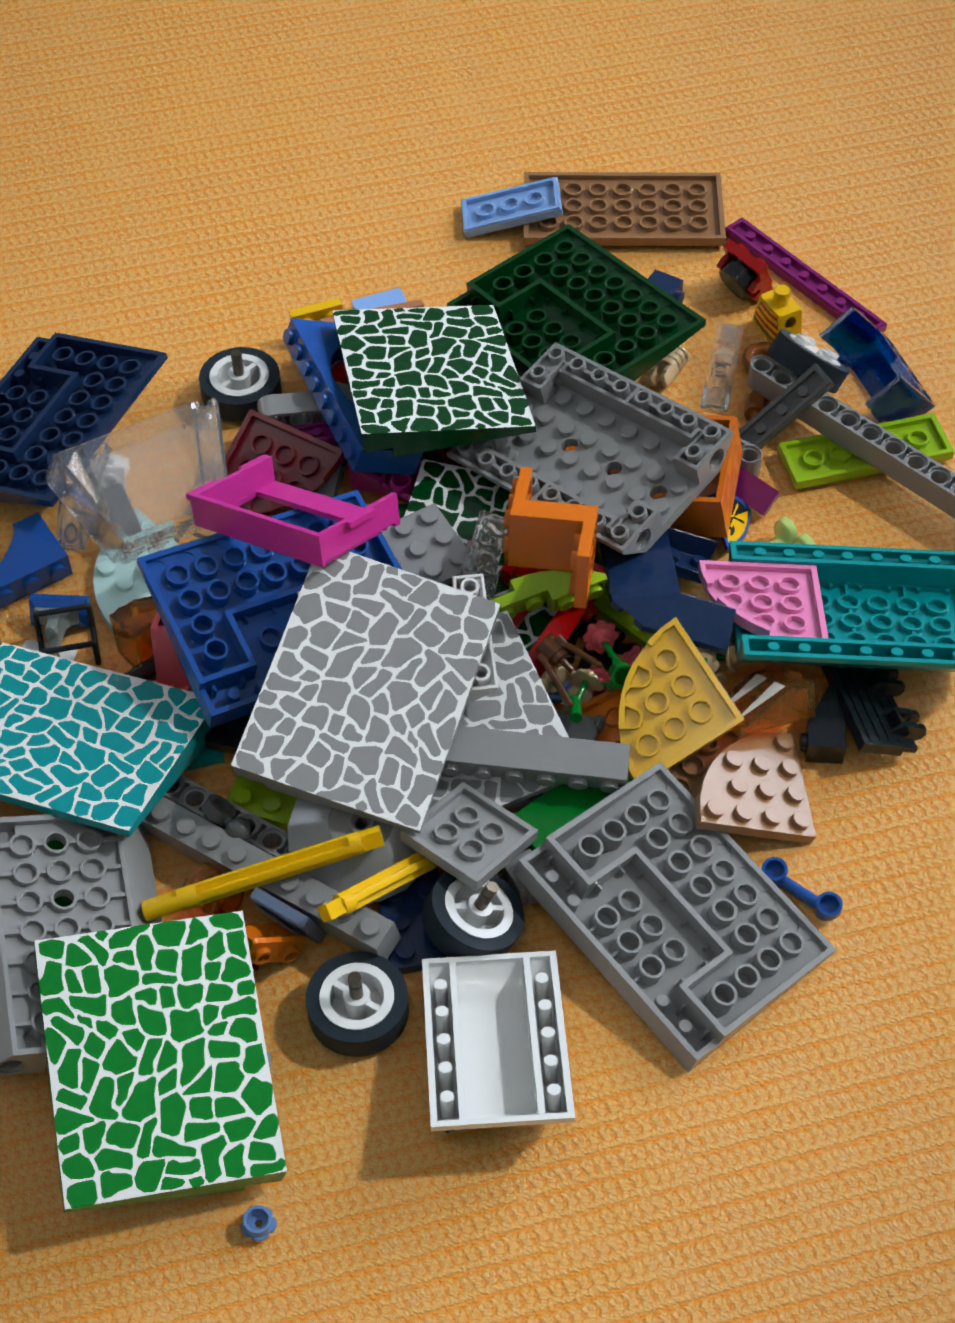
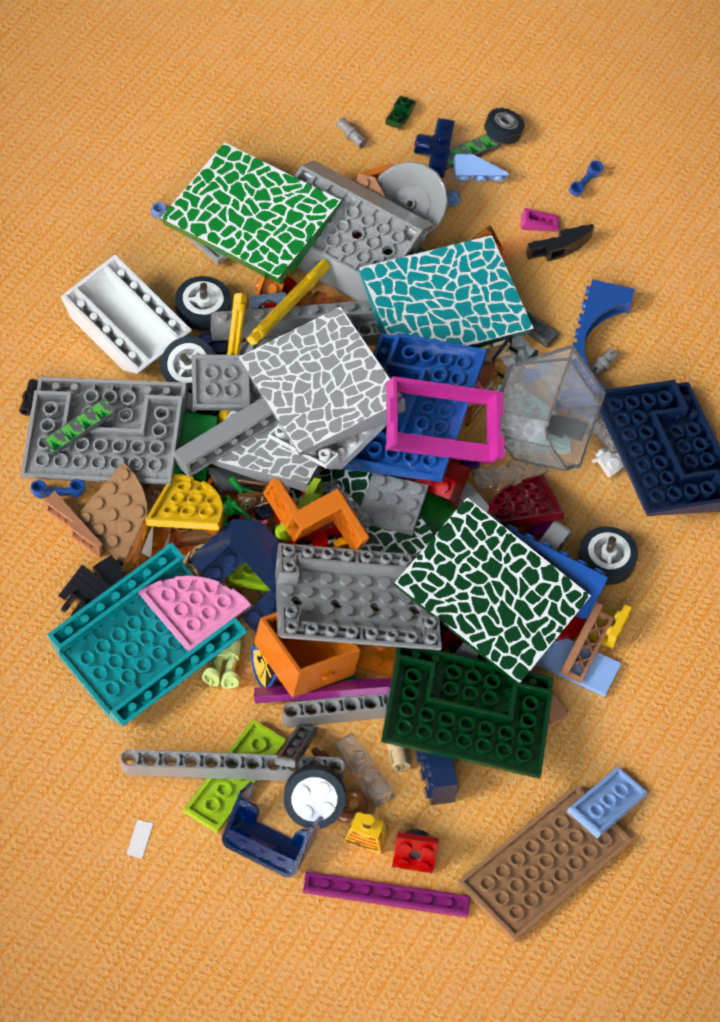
camera: 130 degrees right, 5 degrees up
(711, 925) = (79, 426): none -> tile
(747, 1039) = (25, 408): none -> black pin
(824, 860) = (78, 530): none -> nougat slope

